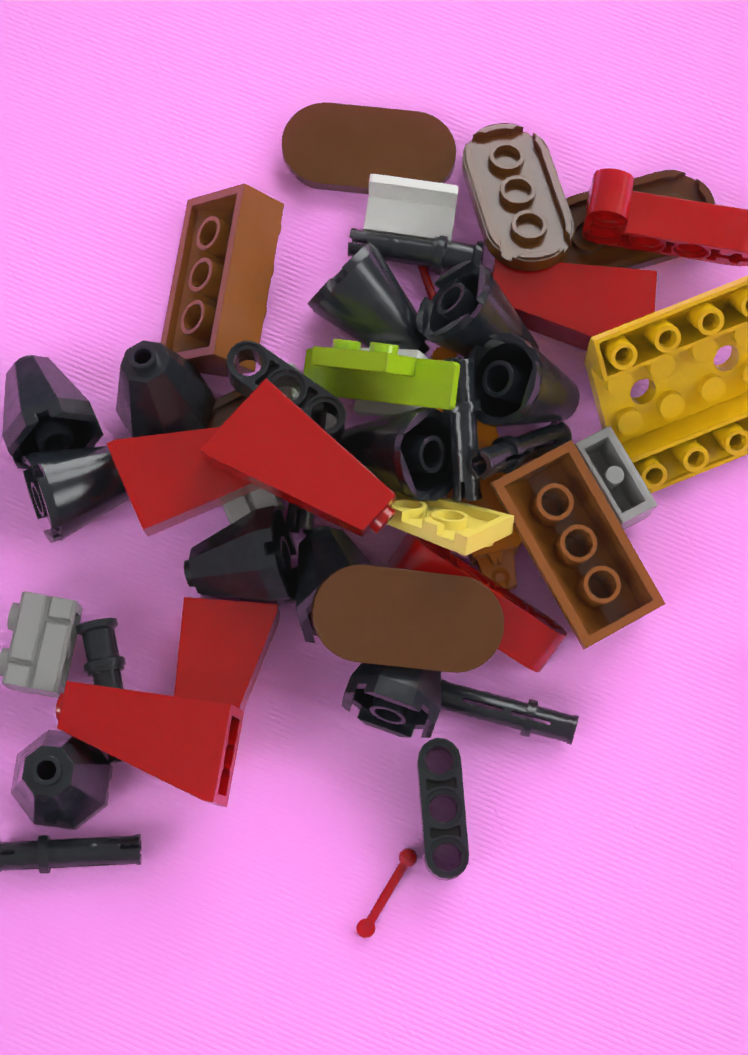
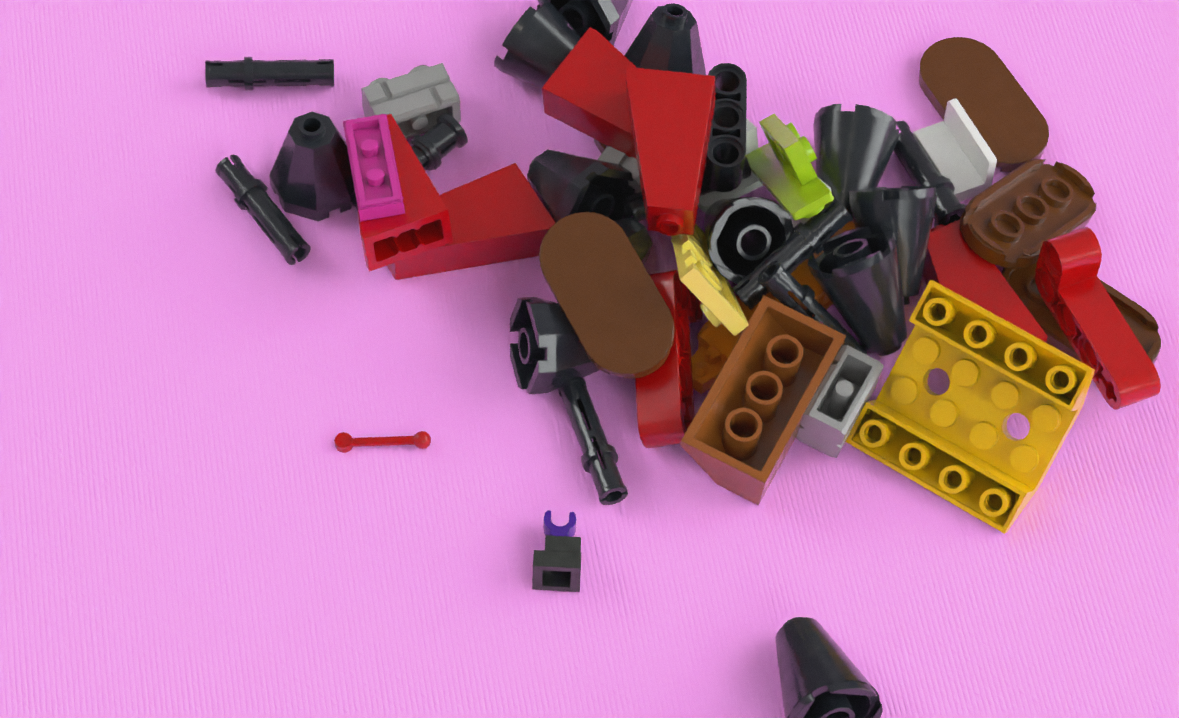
camera: 55 degrees right, 20 degrees down
(131, 740) = (373, 167): none -> dark pink tile
(222, 276) = (805, 60): dark orange slope -> none
(448, 786) = (469, 453): black beam -> none
(611, 817) = (560, 563): none -> pearl dark grey piece

